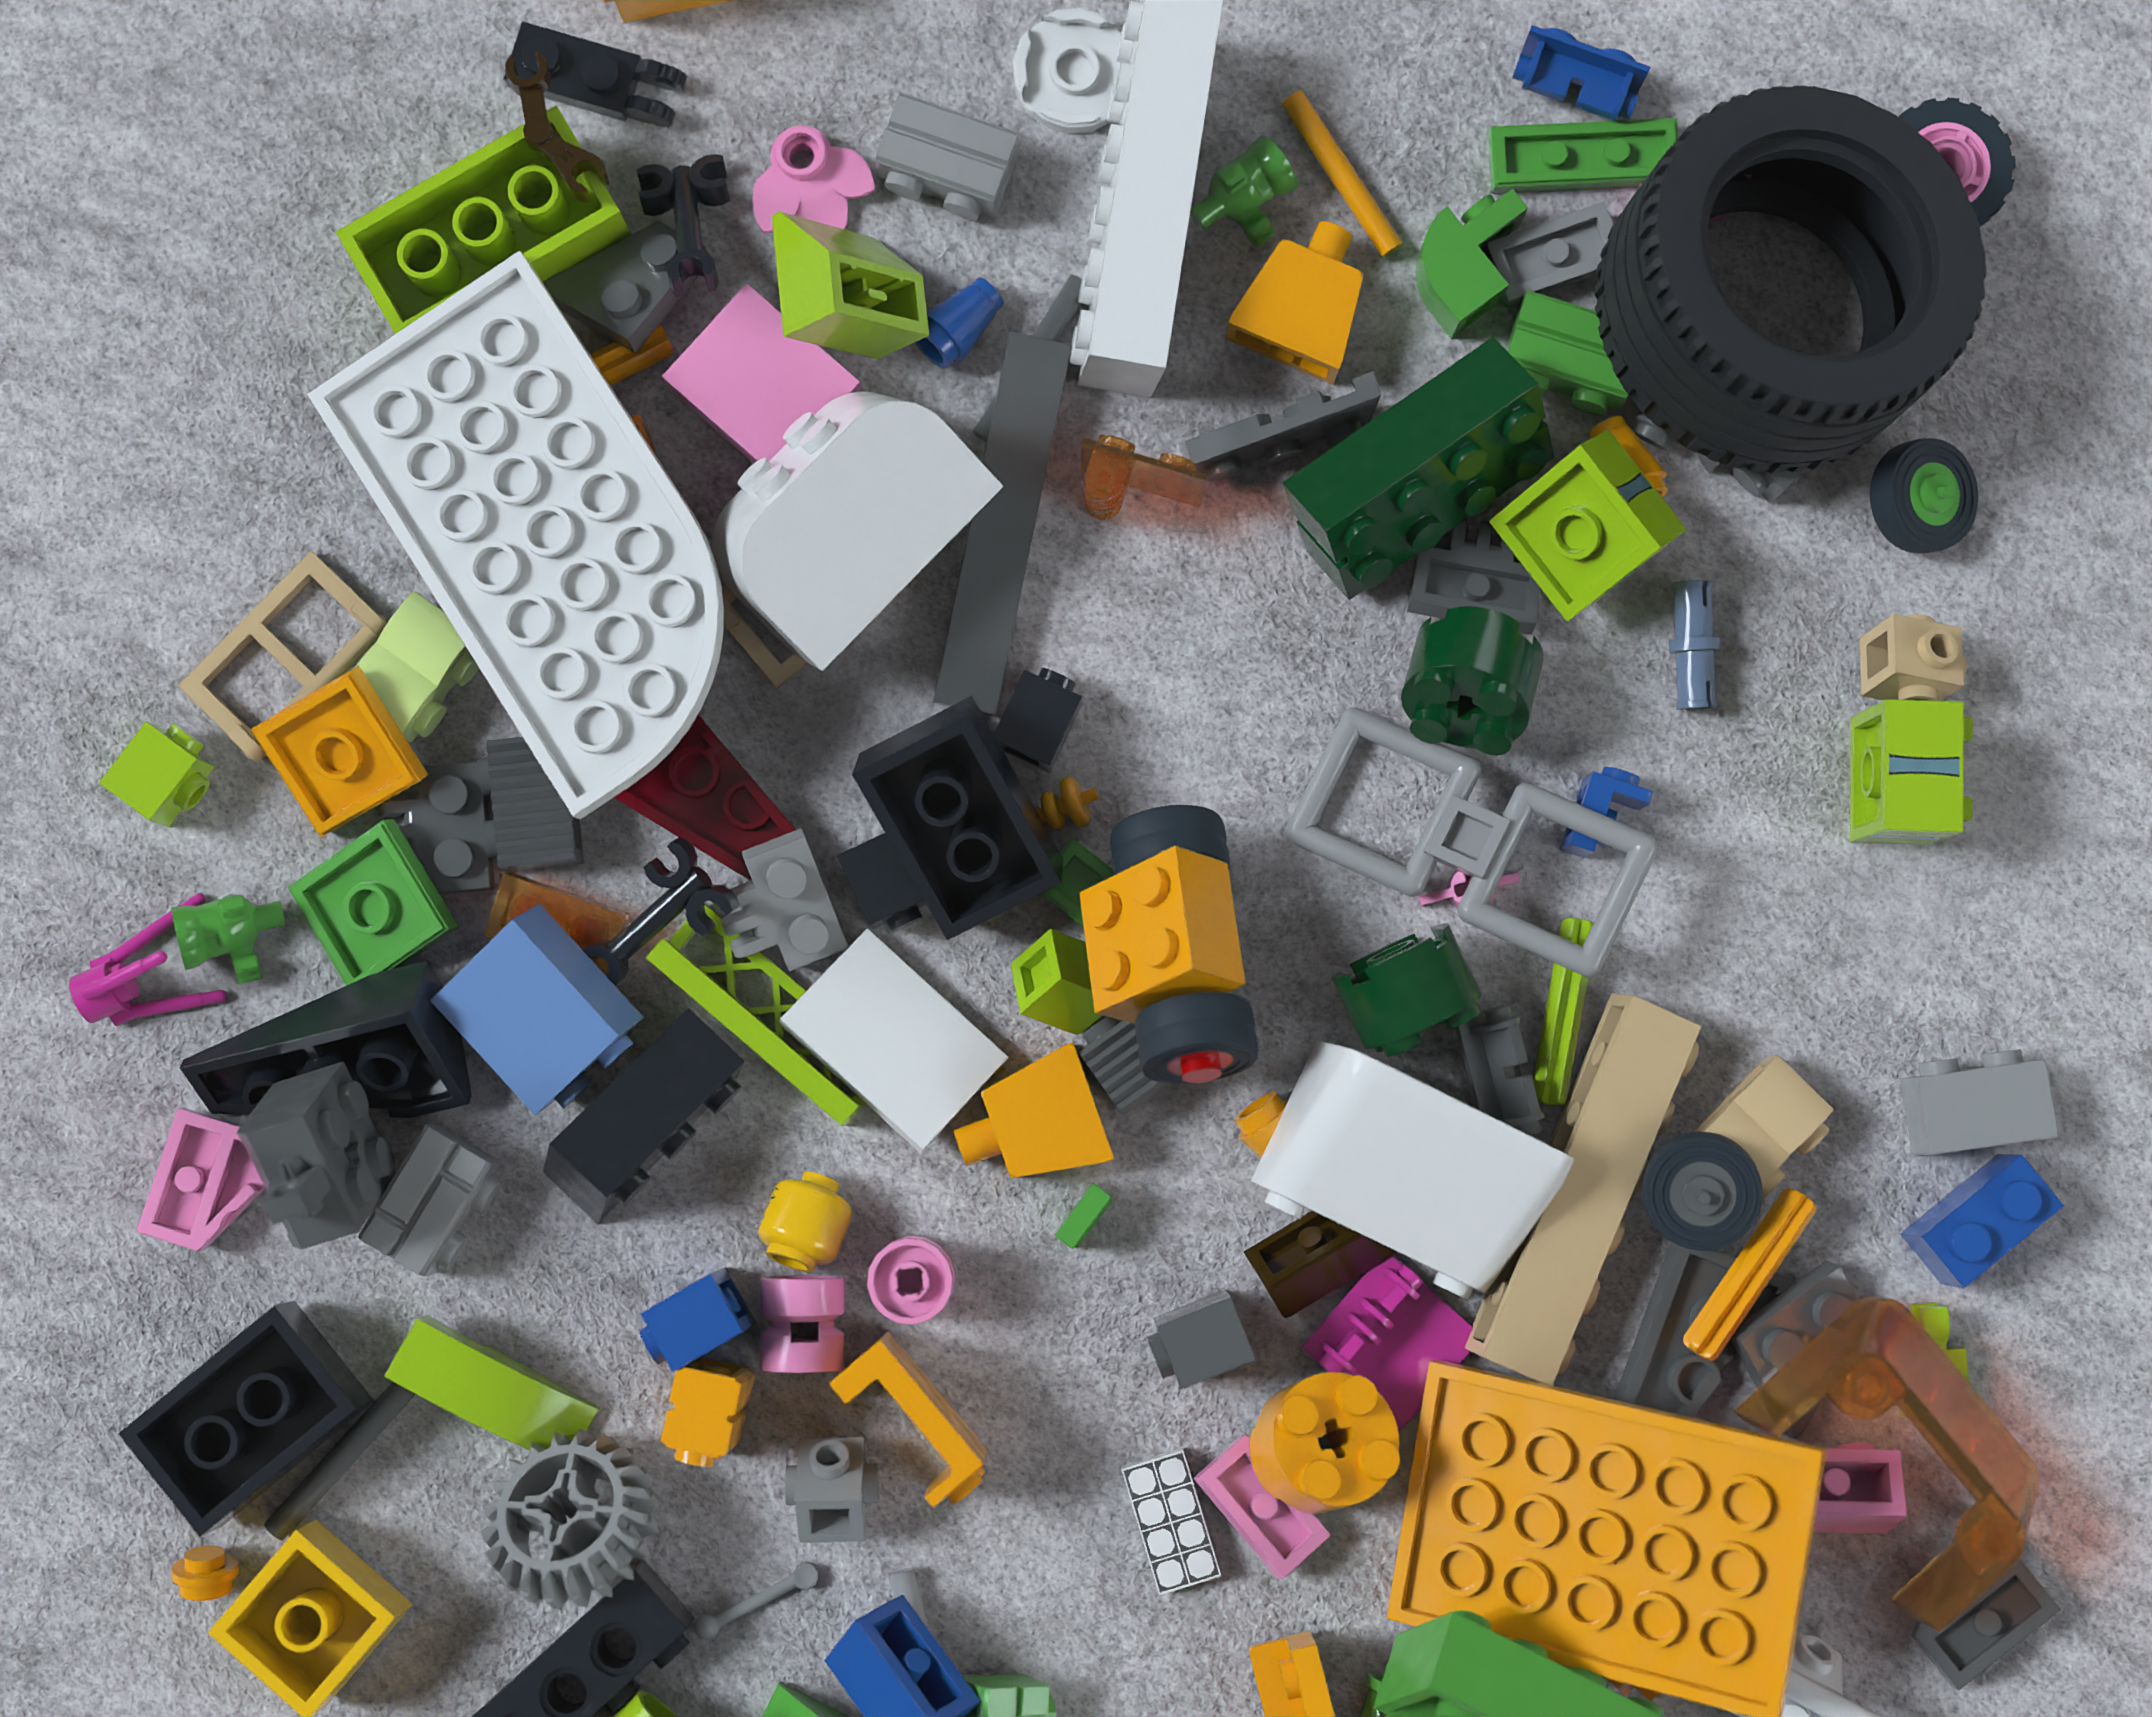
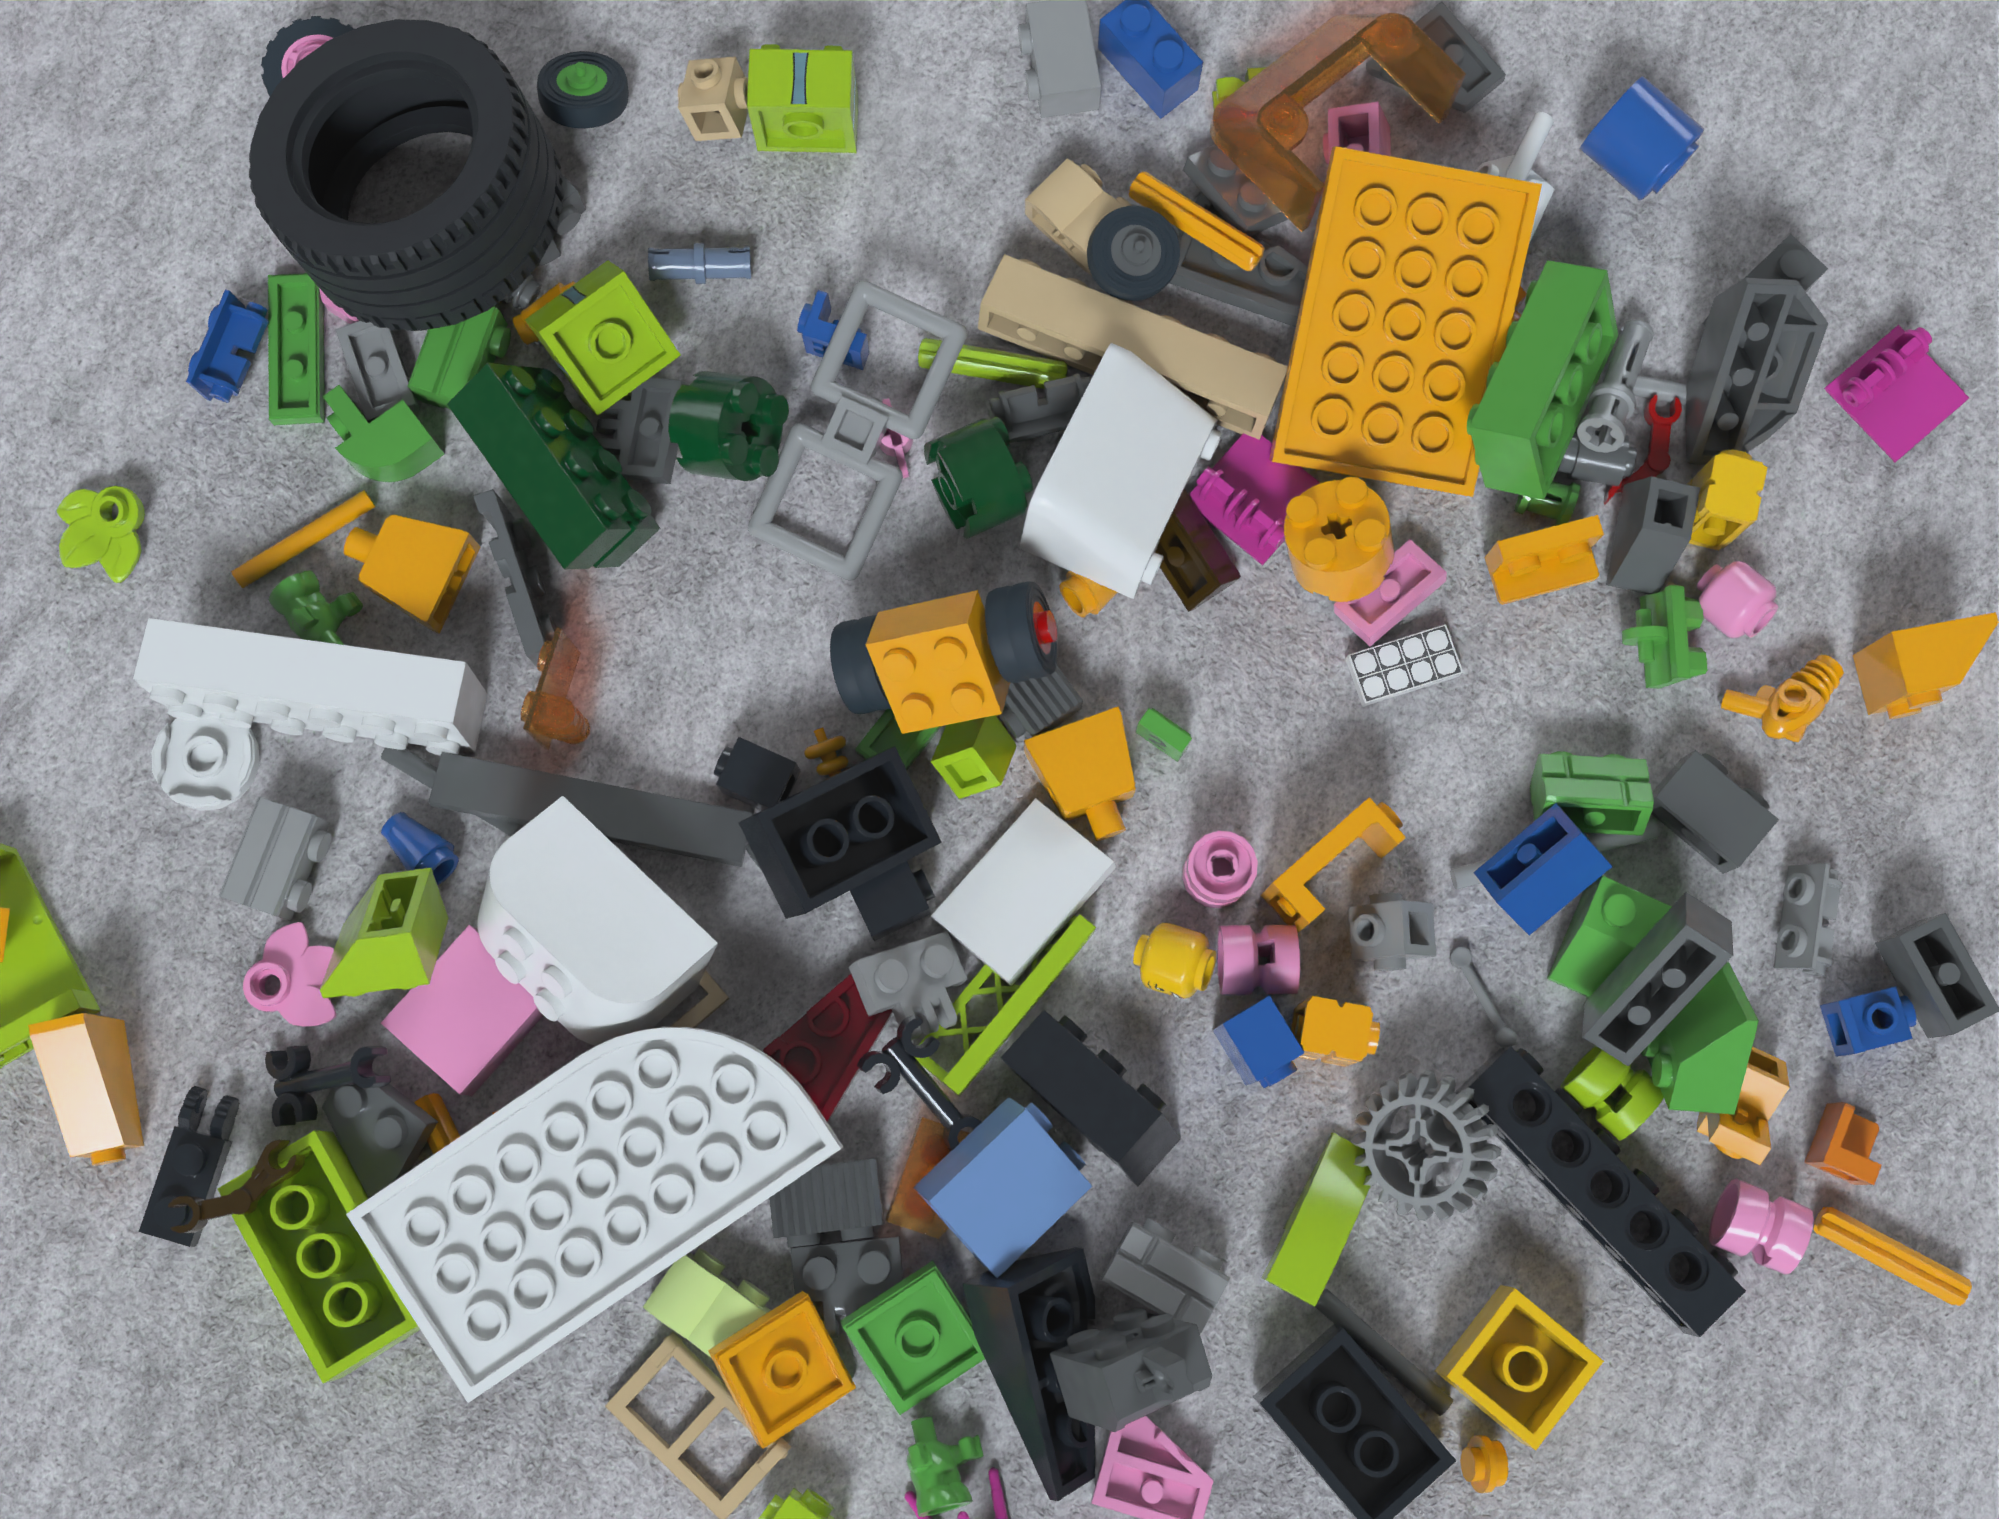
camera: 90 degrees left, 5 degrees down
(1200, 1340) = (1261, 635): dark grey brick -> none

